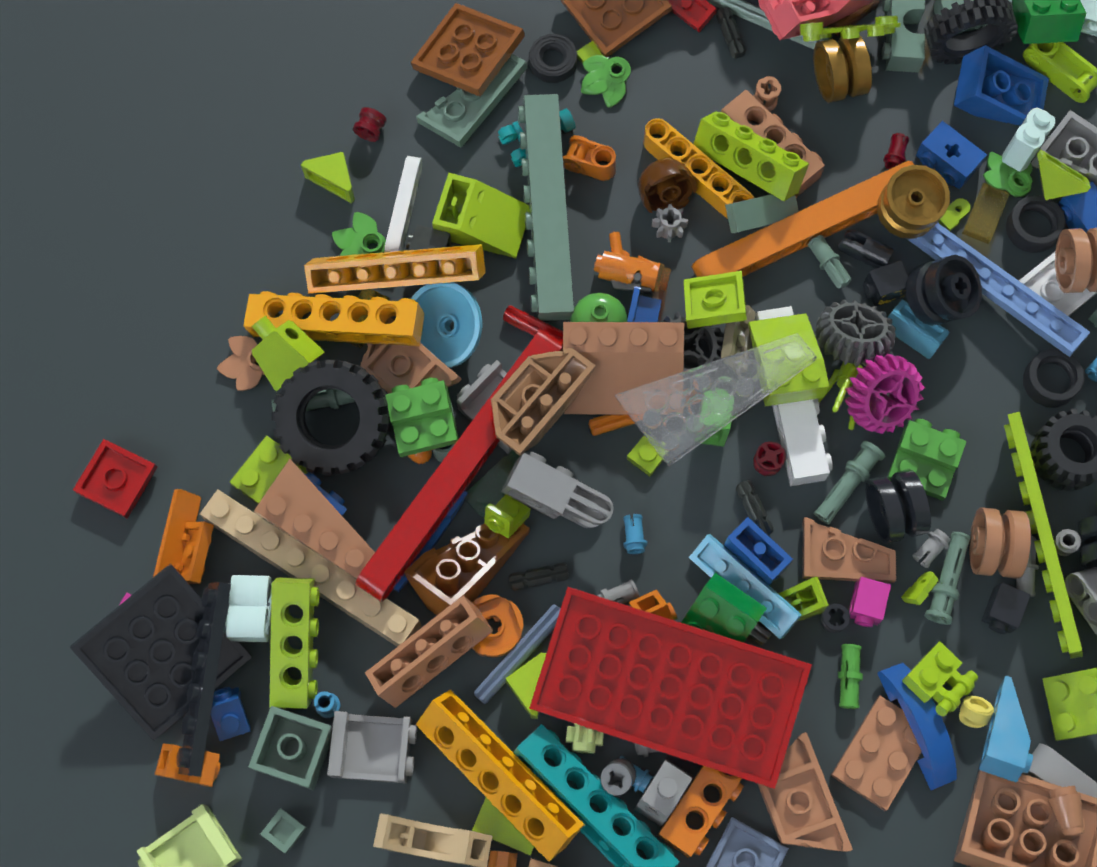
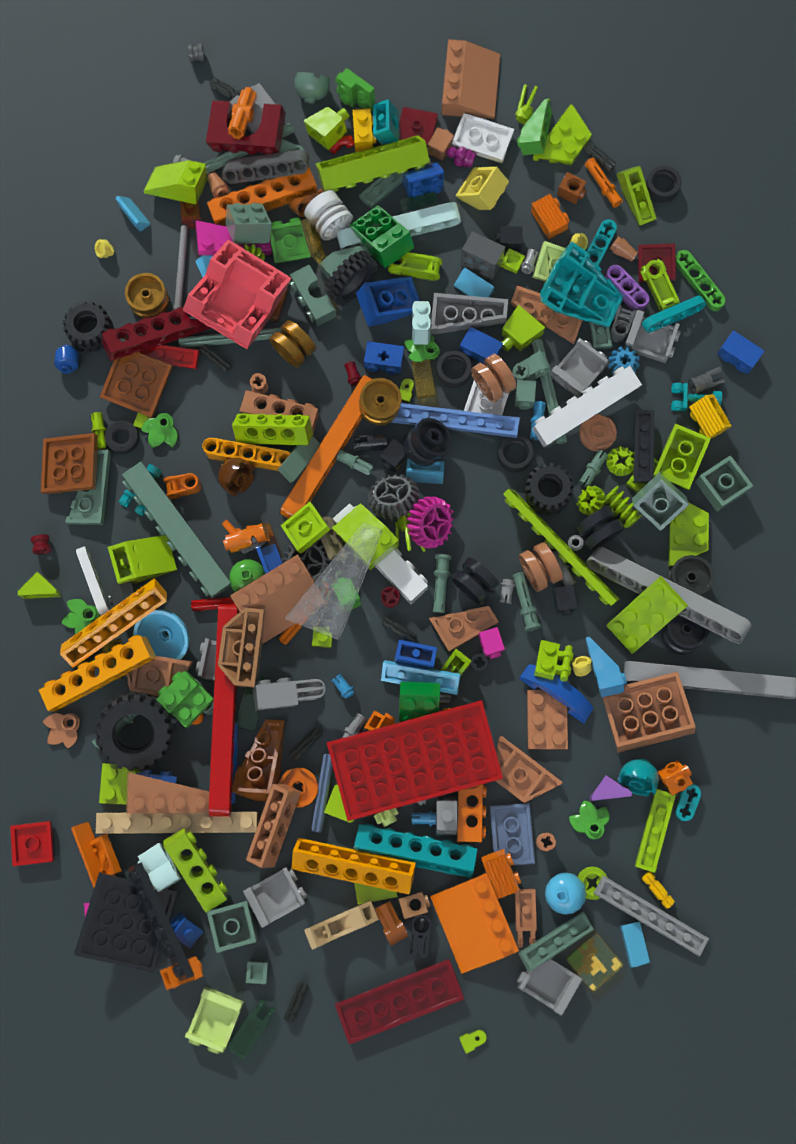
camera: 30 degrees left, 5 degrees up
(283, 350) = (81, 711): lime torso -> none
(327, 712) = (240, 886): dark azure pin -> none
(506, 516) = (267, 722): lime bracket -> none
(531, 30) = (98, 428): none -> lime axle
(623, 771) = (418, 820): dark grey wheel -> none
(661, 222) = (251, 501): light grey gear -> none
(850, 676) = (506, 689): bright green pin -> none
(882, 26) = (283, 319): lime plant -> none
(920, 589) = (514, 617): lime piece -> none
(930, 455) = (475, 541): bright green plate -> none
(1058, 178) = (451, 337): lime slope -> none
(1067, 809) = (657, 690): nougat cone -> none

